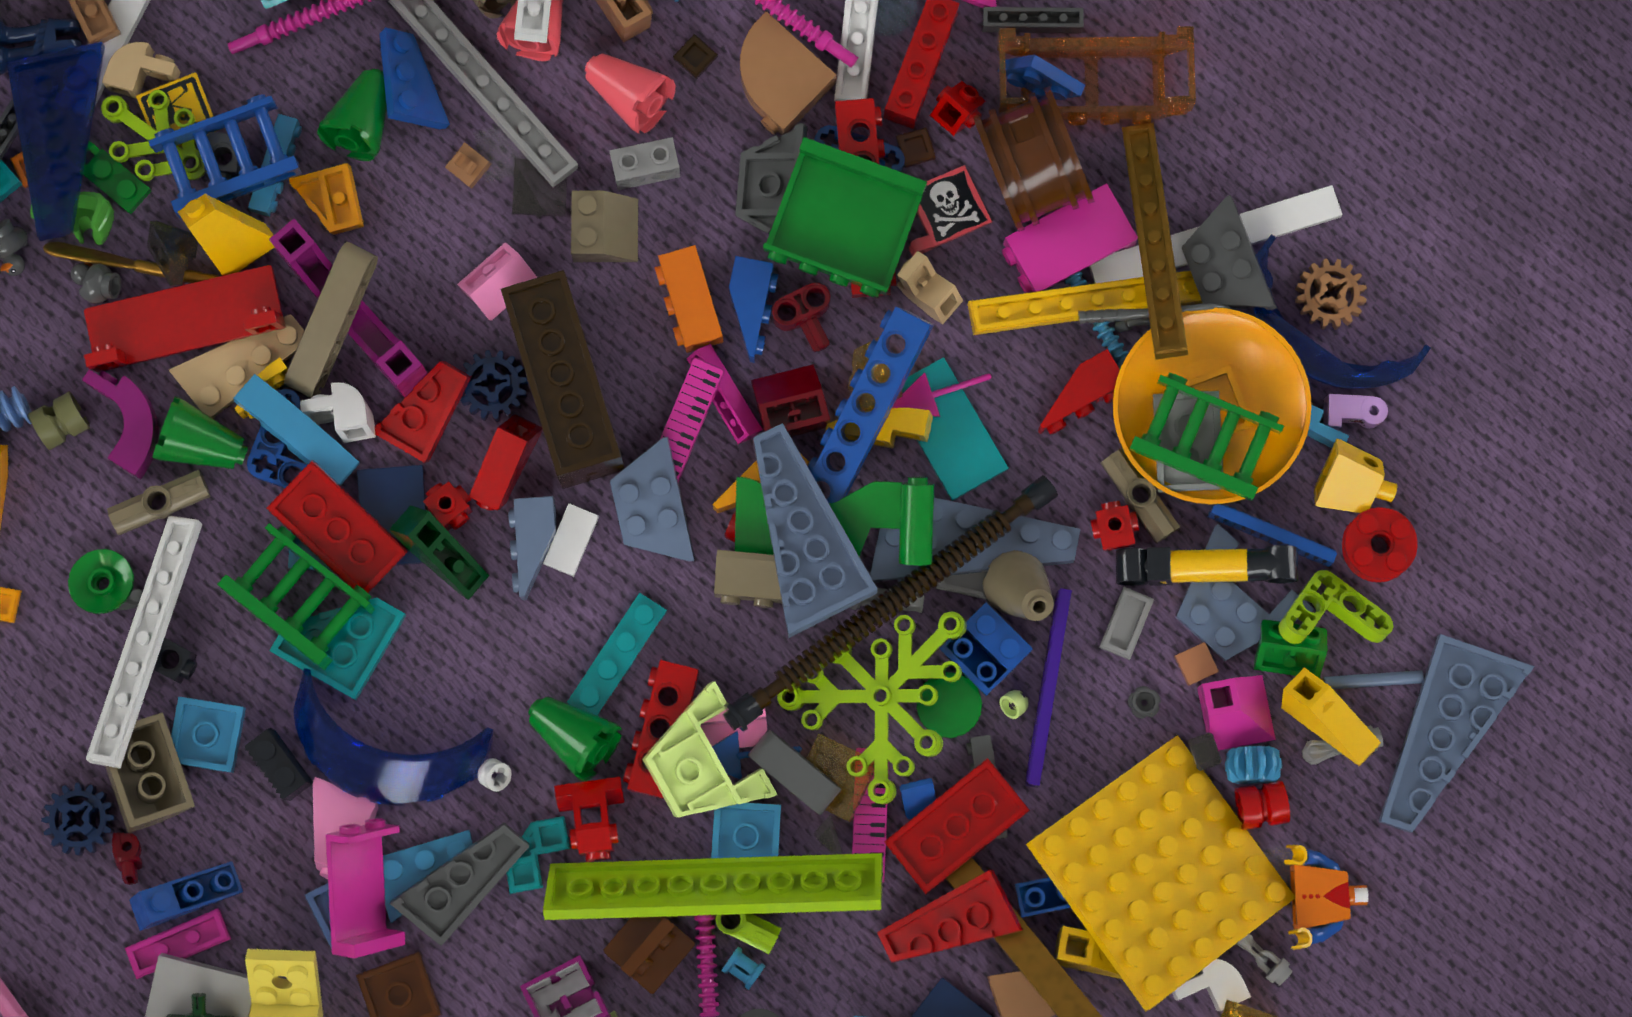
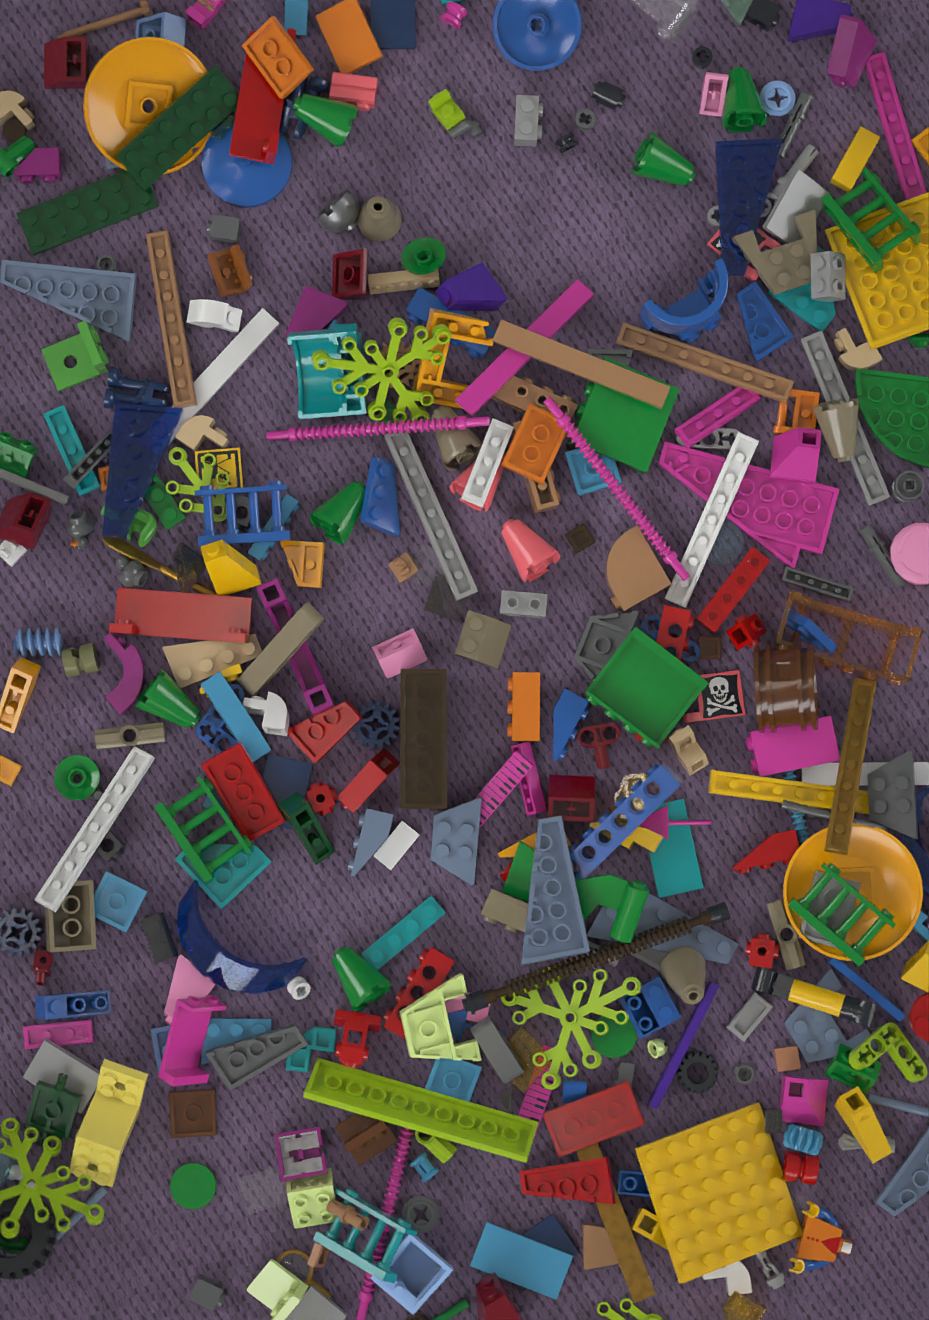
camera: 15 degrees right, 5 degrees up
(1094, 705) = (705, 1084): none -> black tyre

